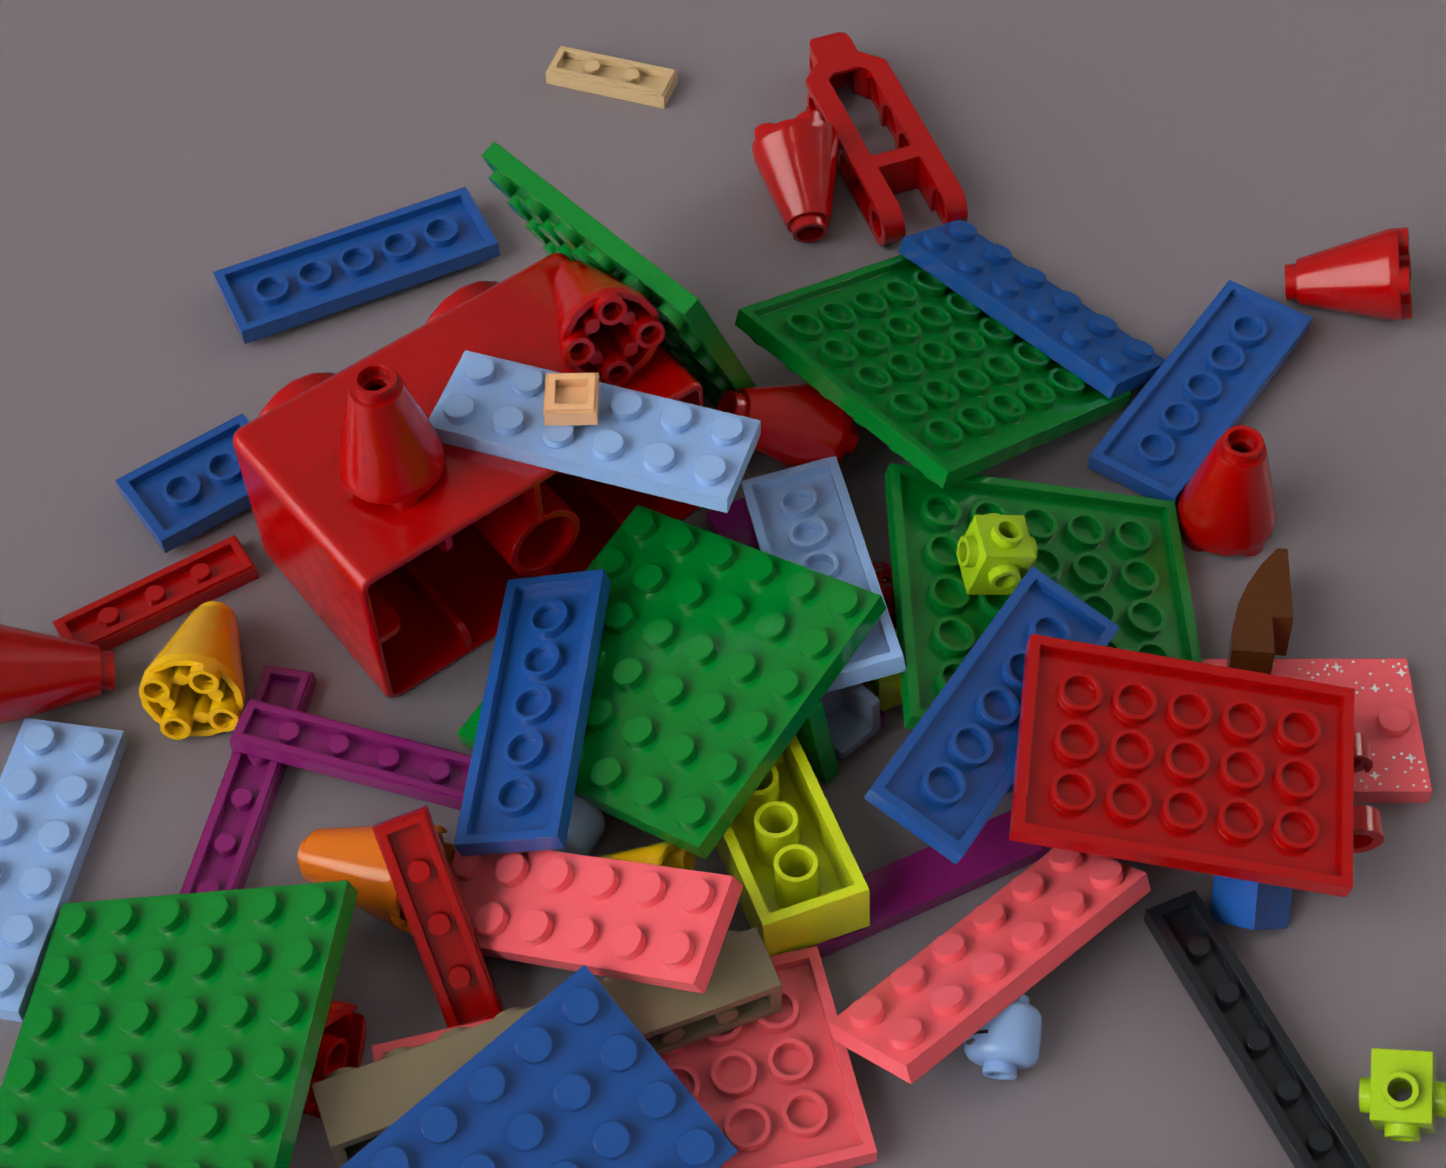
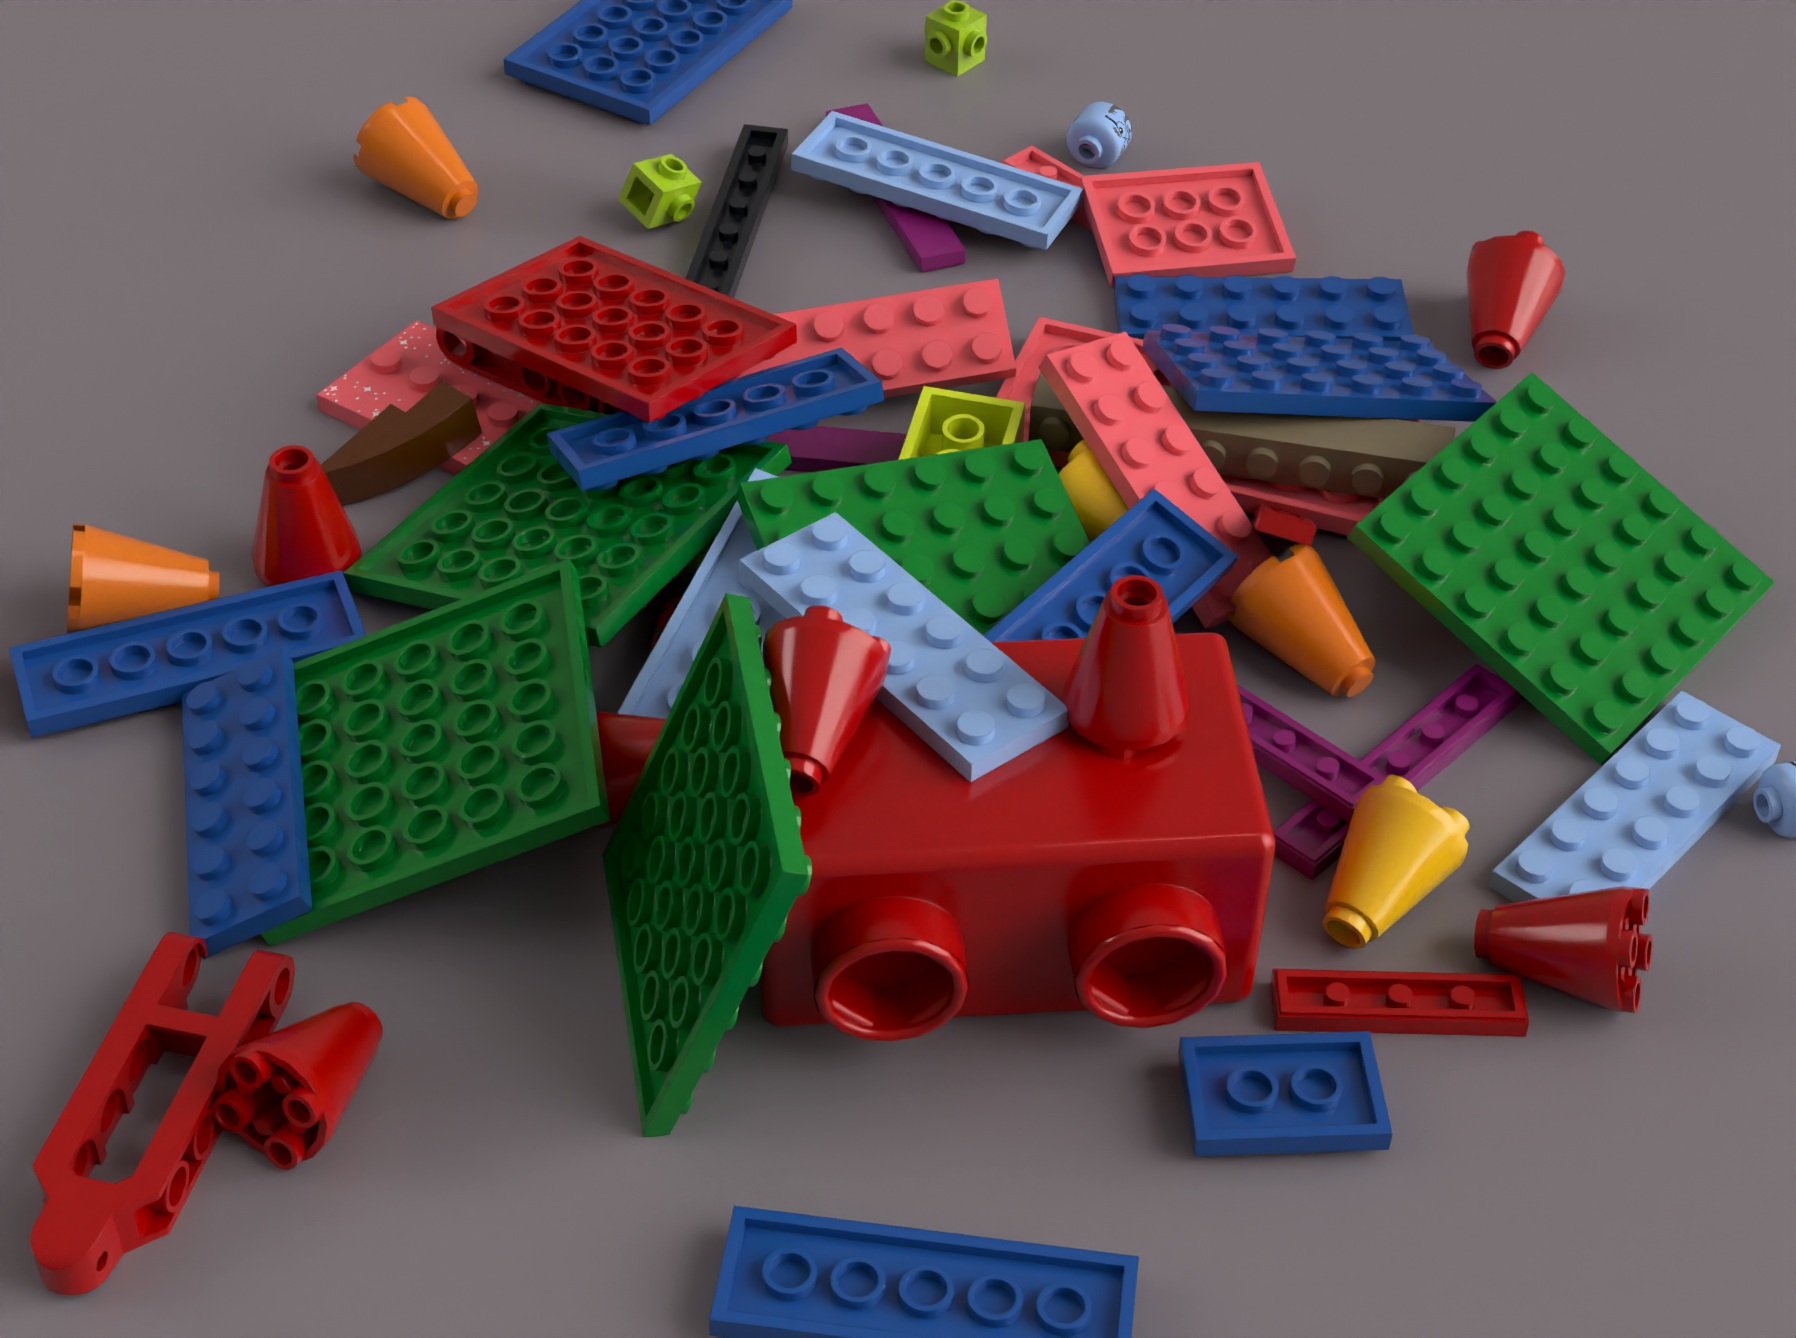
camera: 150 degrees left, 10 degrees down
(571, 399) = (914, 631): light nougat tile -> none
(995, 554) = (592, 506): lime brick -> none
(1302, 388) = (130, 578): none -> orange cone

